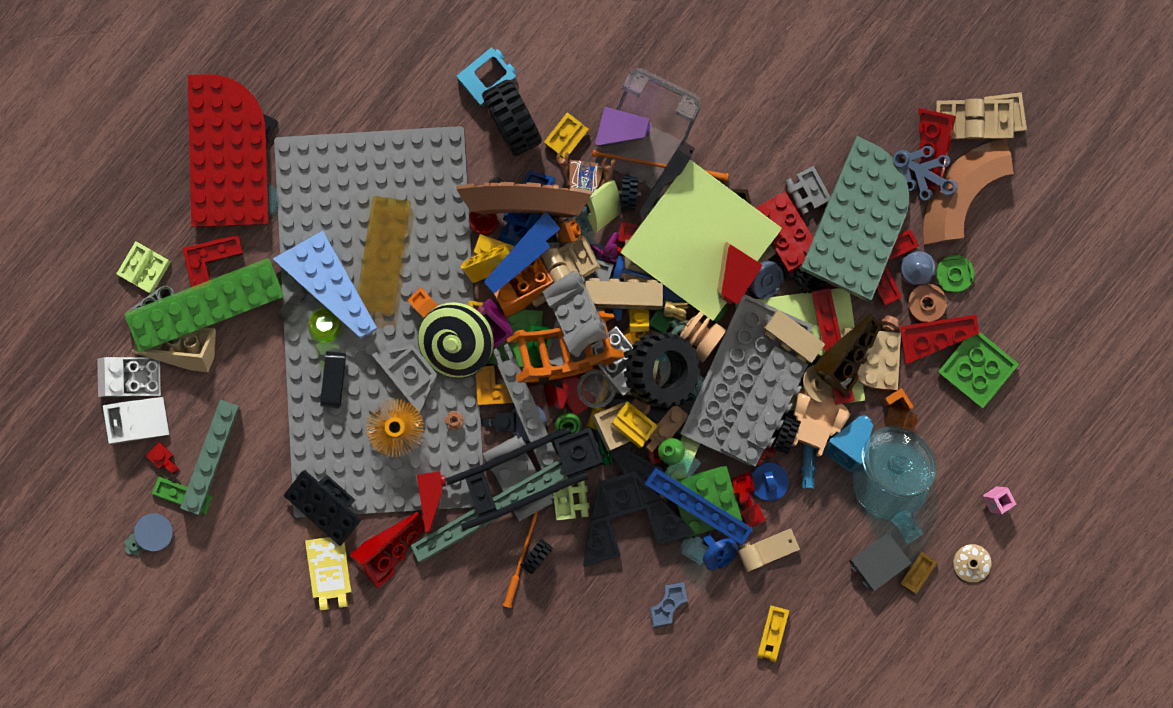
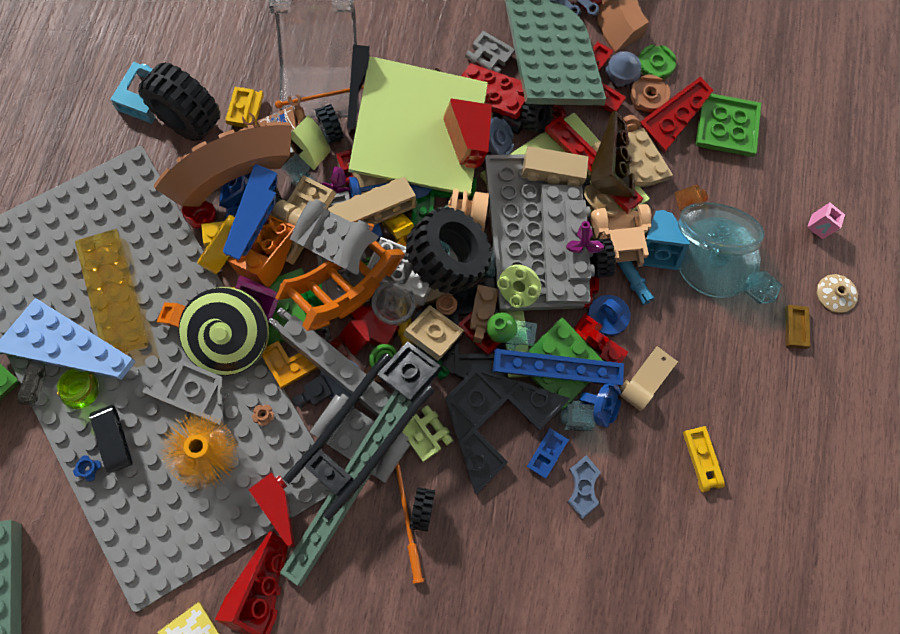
camera: 40 degrees left, 15 degrees down
(306, 387) = (80, 469): none -> blue plate
(324, 505) = (160, 579): black bracket -> none
(569, 230) = (288, 177): orange slope -> none
(621, 127) = (292, 67): medium lavender slope -> none
(633, 424) = (450, 321): yellow plate -> none
(656, 564) = (547, 453): none -> blue slope
(675, 310) = (423, 201): pearl gold piece -> none
(703, 426) = (519, 285): none -> yellowish green plate
(778, 411) = (584, 234): none -> magenta plant
(879, 562) = (758, 333): dark grey brick -> none
(899, 394) = (684, 177): orange panel -> none

